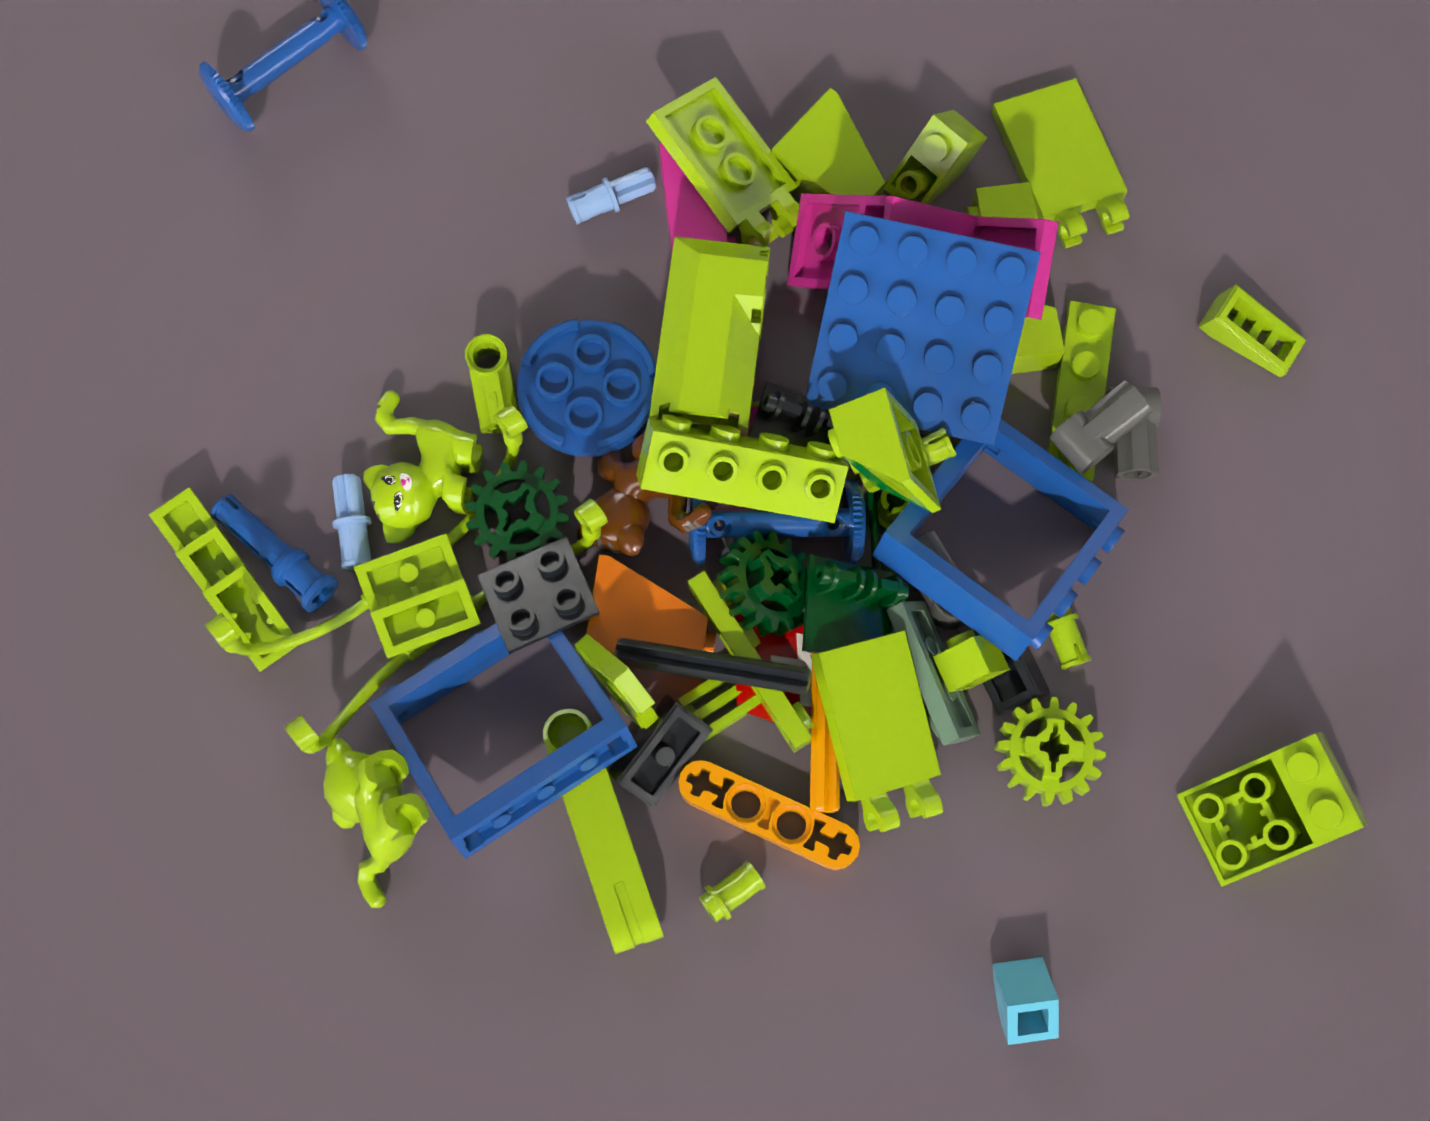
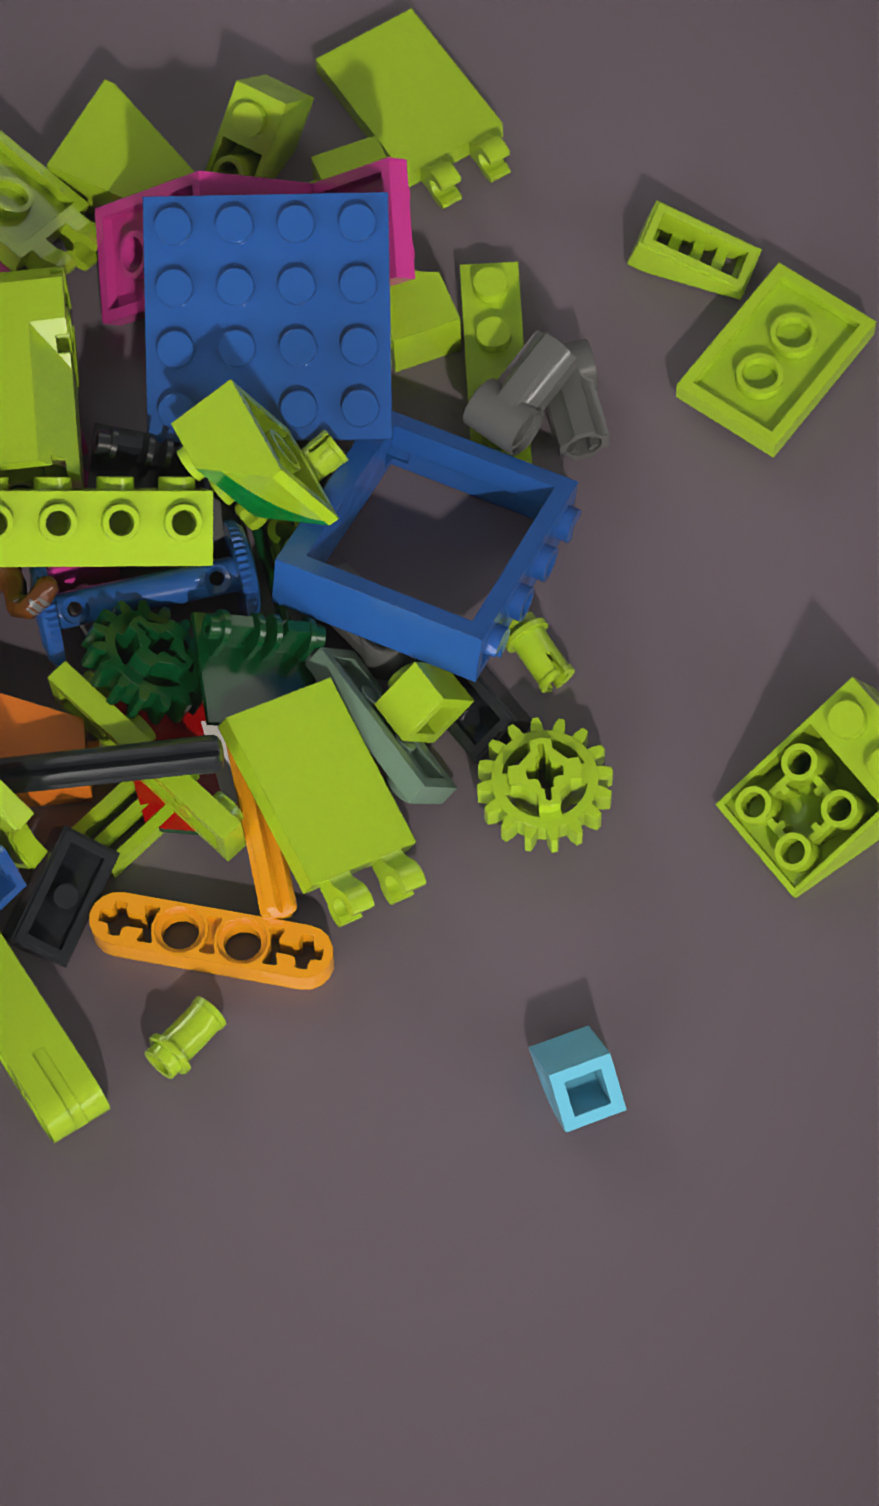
camera: 10 degrees left, 10 degrees down
(1300, 436) = (775, 359): none -> lime plate

